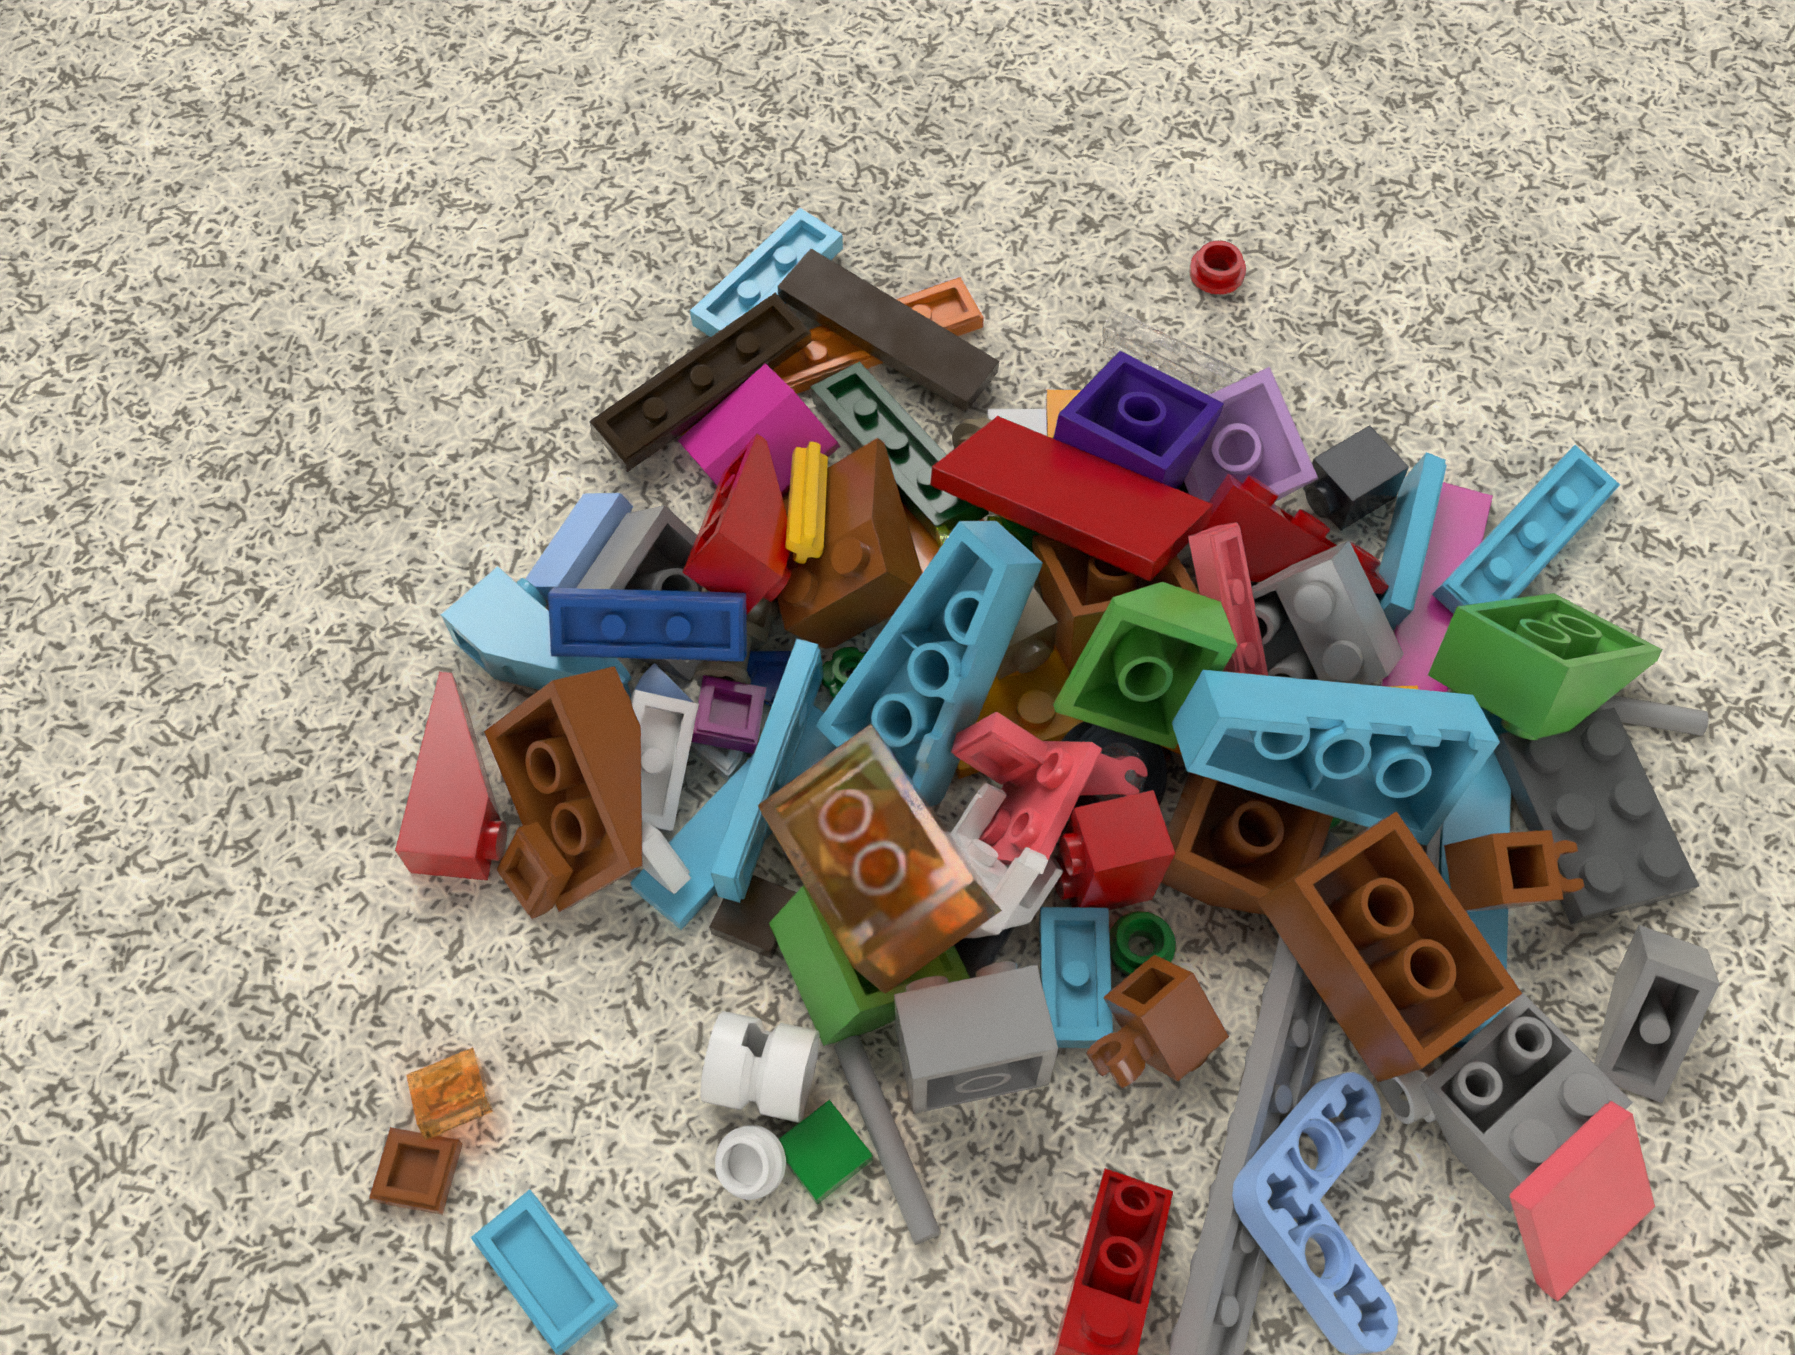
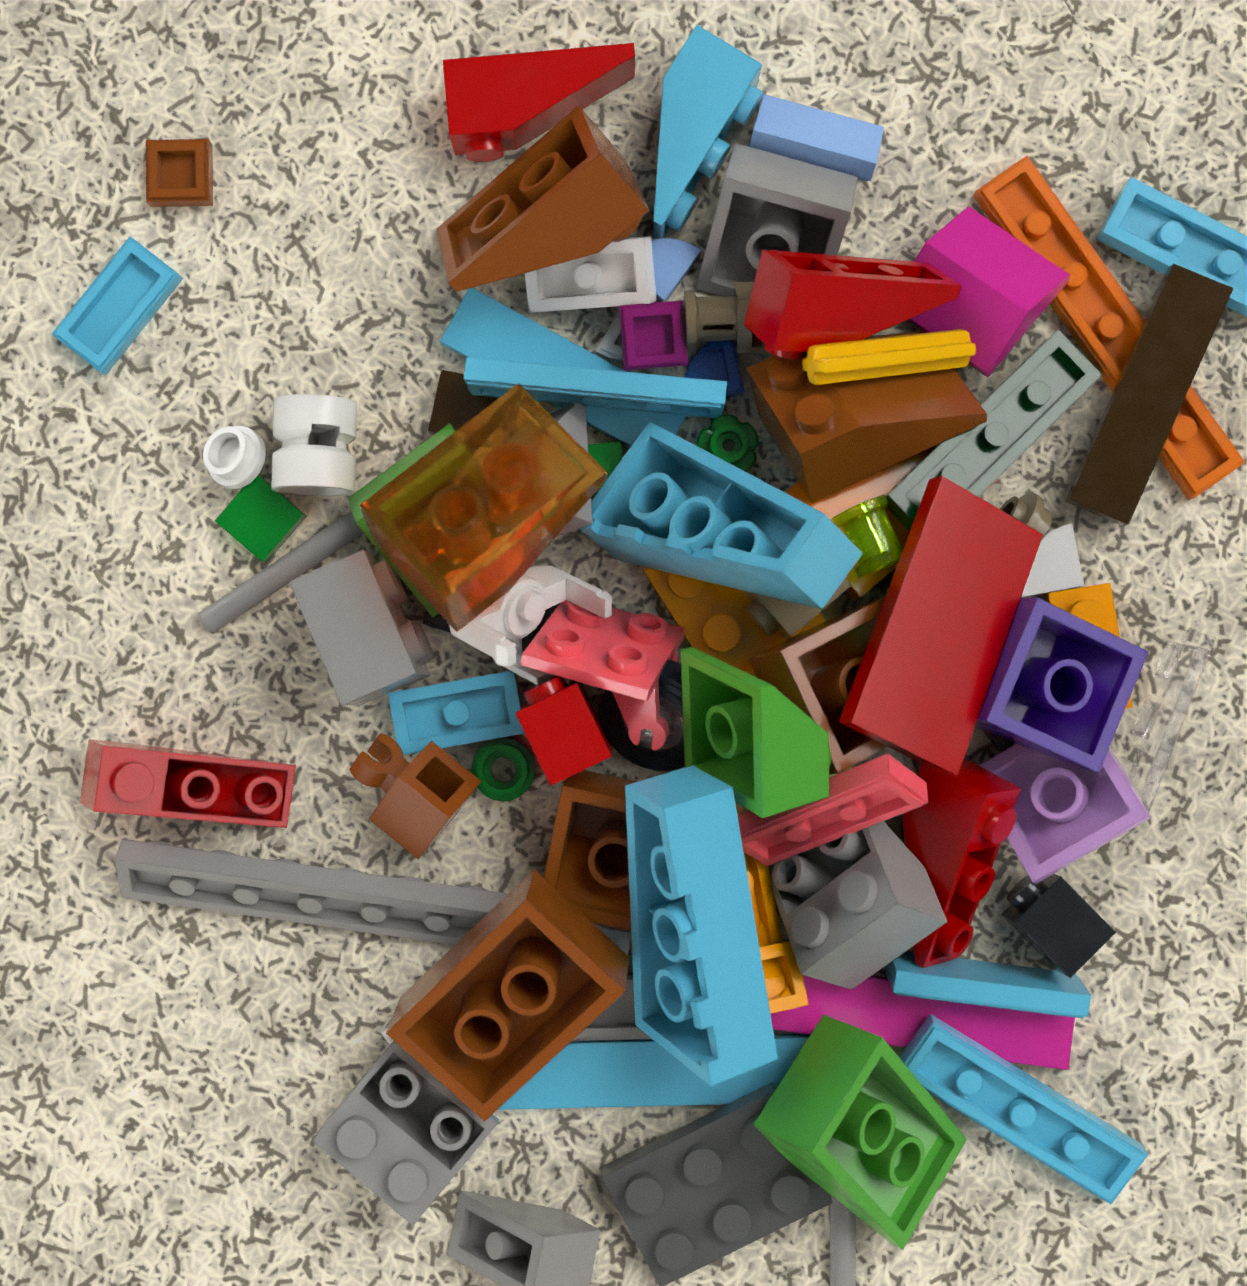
camera: 75 degrees right, 25 degrees up
(449, 1093) = (246, 180): clear orange tile -> none
(534, 870) = (461, 194): dark orange tile -> none
(648, 624) = (710, 230): blue tile -> none
(661, 860) = (485, 305): white tile -> none
(699, 382) = (1039, 212): dark brown tile -> none
(999, 748) = (644, 603): coral tile -> none
(1298, 1196) = (286, 935): light blue beam -> none
(1508, 870) = (617, 1106): dark orange brick -> none
(1583, 1200) = (326, 1184): coral tile -> none

